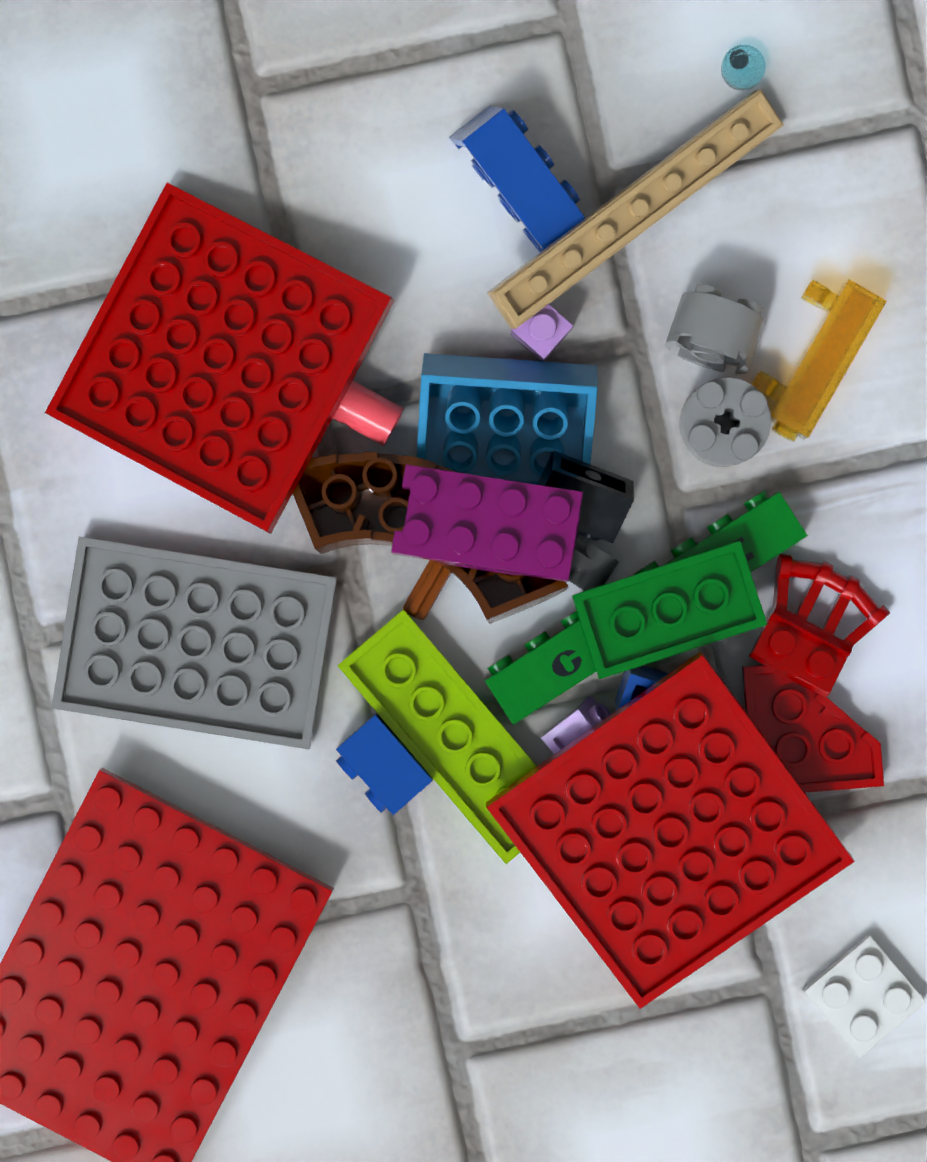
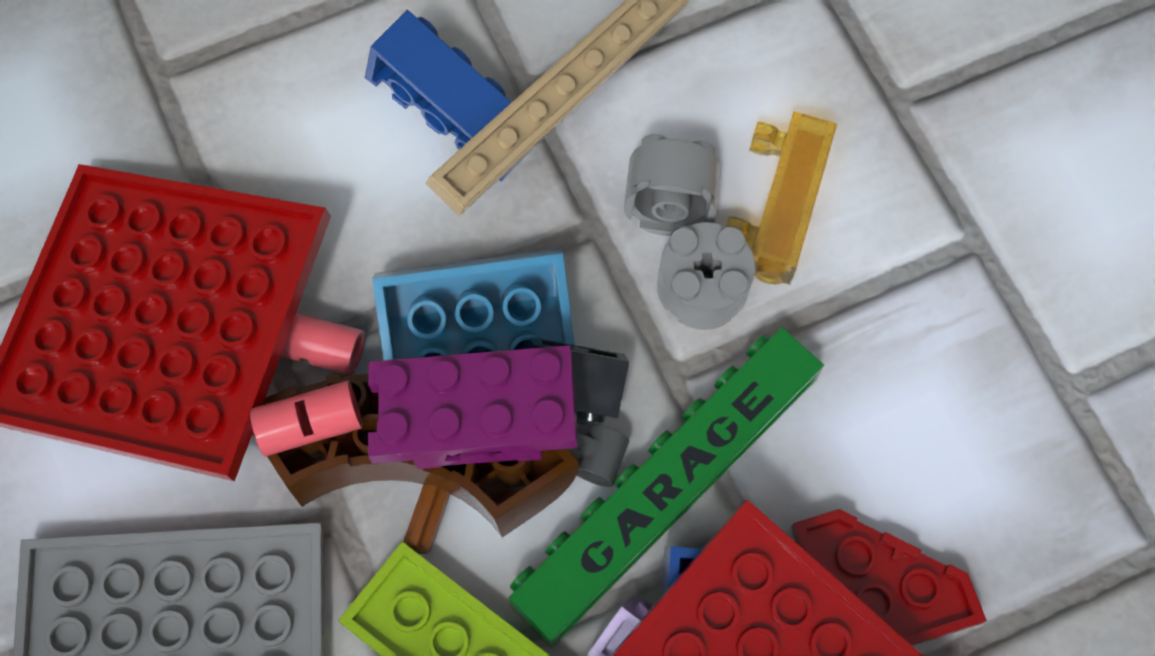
camera: 10 degrees left, 20 degrees down
(342, 495) = (306, 418): none -> coral pin
(542, 332) = (493, 224): lavender brick -> none
(669, 609) = (696, 469): green plate -> none
(801, 648) = (851, 488): red plate -> none

